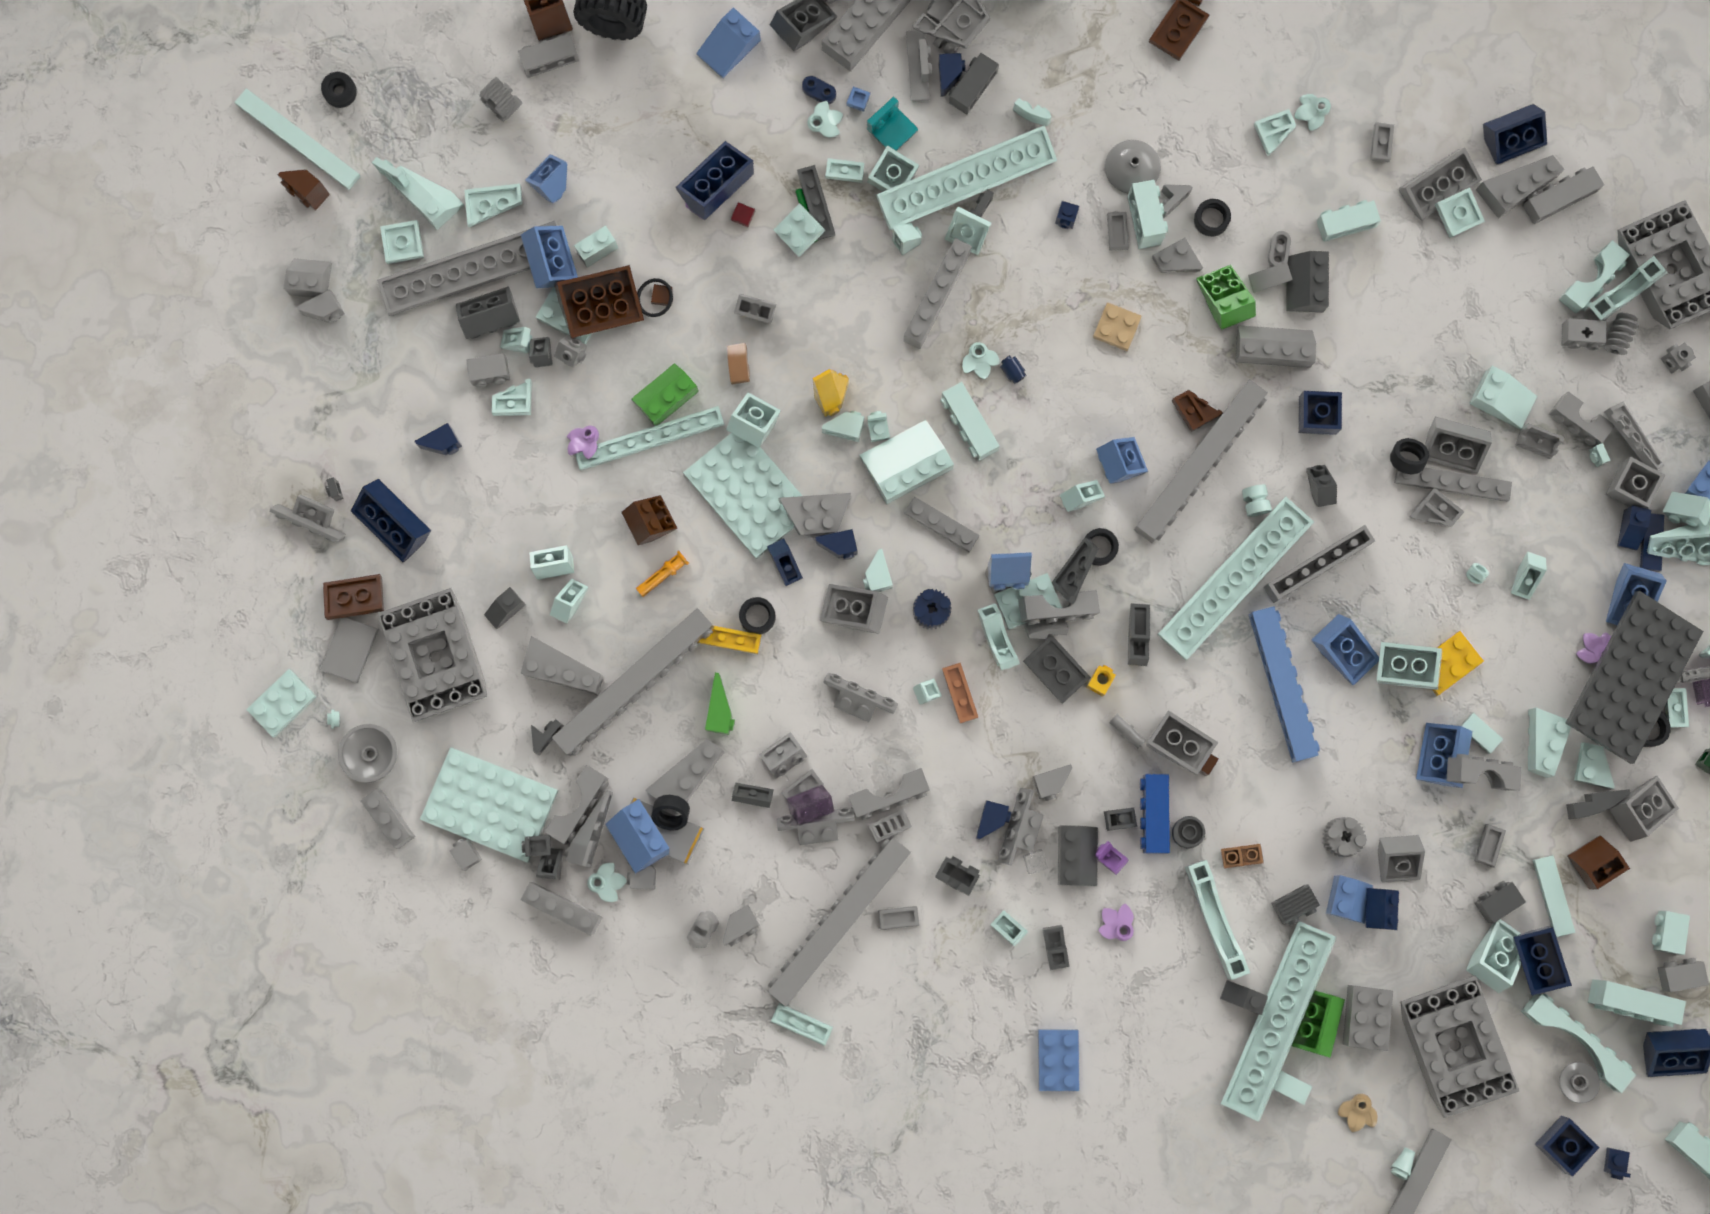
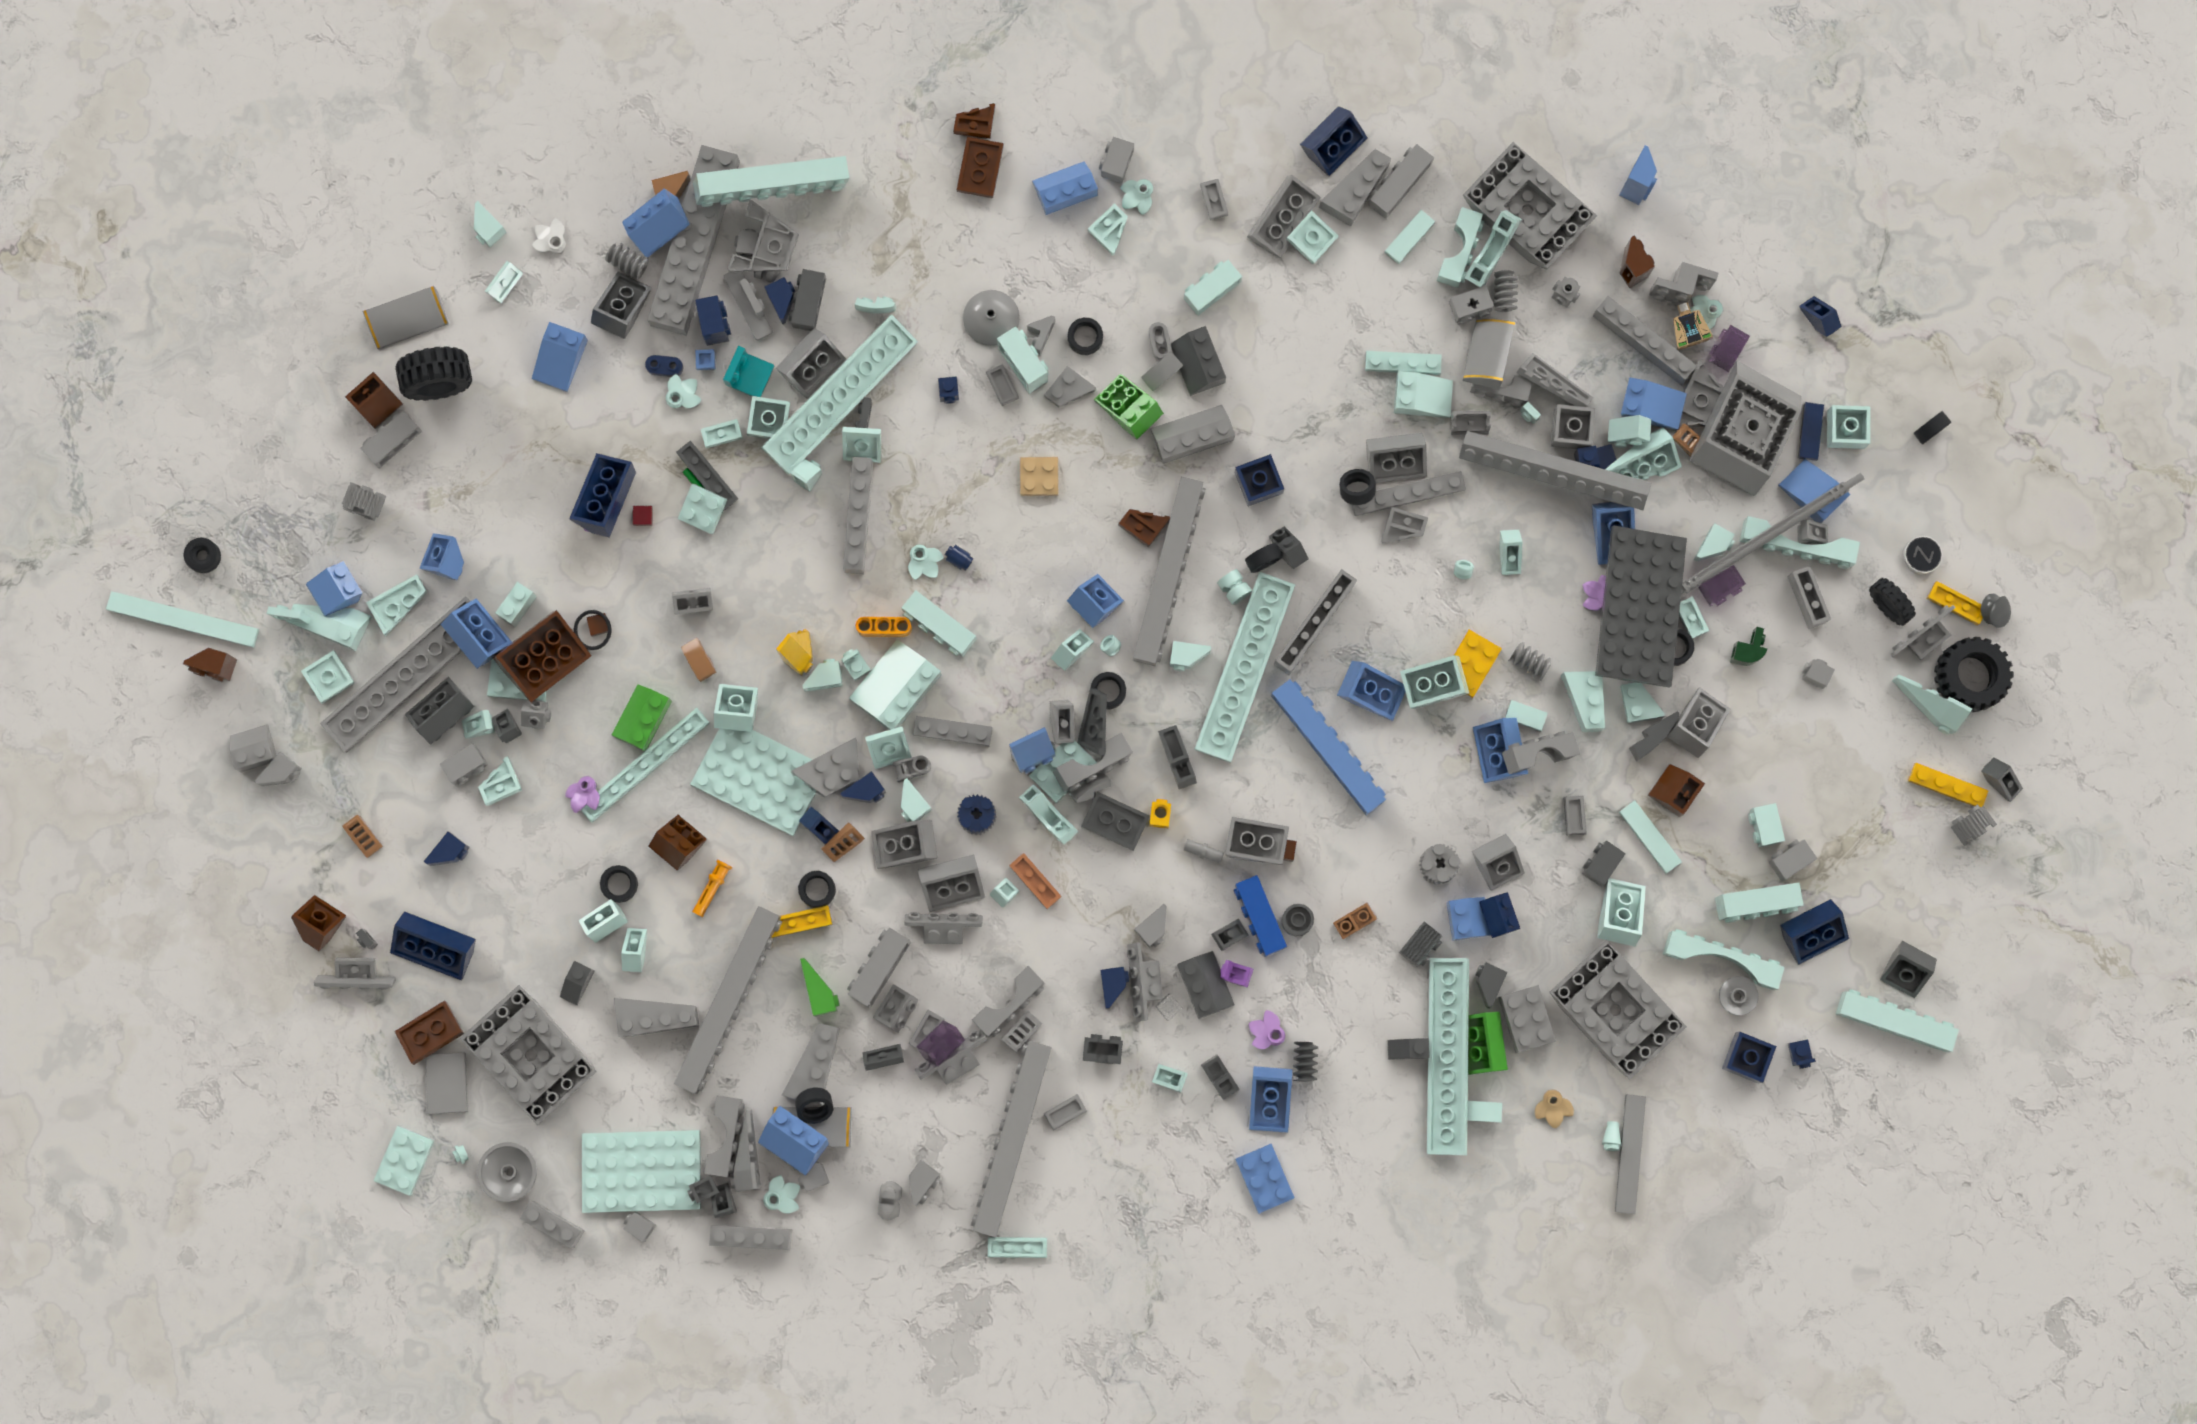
camera: 25 degrees left, 0 degrees up
(297, 455) = (317, 922): none -> reddish brown slope
(365, 381) = (352, 833): none -> medium nougat slope
(441, 166) = (334, 589): none -> medium blue slope
(542, 740) = (665, 1090): dark grey slope -> none
(577, 521) = (618, 869): none -> black tyre
(783, 711) = (879, 967): none -> light grey brick
(802, 575) = (838, 838): none -> medium nougat slope
(876, 514) = (888, 747): none -> light aqua plate
(880, 65) = (712, 321): none -> dark blue brick
(882, 662) = (951, 883): none -> light grey slope
(888, 541) = (910, 768): none -> light grey piece
(925, 410) = (892, 631): none -> light orange beam
(952, 139) = (811, 363): none -> light grey slope
(1046, 556) = (1062, 721): none -> light grey slope
(1095, 988) = (1270, 1099): none -> medium blue slope
(1119, 506) = (1110, 645): none -> light aqua tile
(1142, 967) = (1305, 1061): none -> dark grey piece
(1186, 544) = (1187, 655): none -> light aqua slope
(1218, 926) = (1355, 990): light aqua arch -> none
(1250, 78) = (1065, 187): none -> medium blue slope
(1295, 485) = (1263, 558): none -> black tyre
(1307, 71) = (1117, 159): none -> light grey brick
(1346, 968) = (1489, 982): none -> dark grey slope
(1489, 356) = (1406, 362): none -> light aqua plate
(1507, 683) = (1531, 660): none -> light grey piece
(1542, 960) = (1660, 900): dark blue slope -> none
(1550, 249) = (1409, 236): none -> light aqua tile
(1584, 383) = (1489, 352): none -> light grey slope
(1604, 517) = (1555, 470): none -> light grey brick

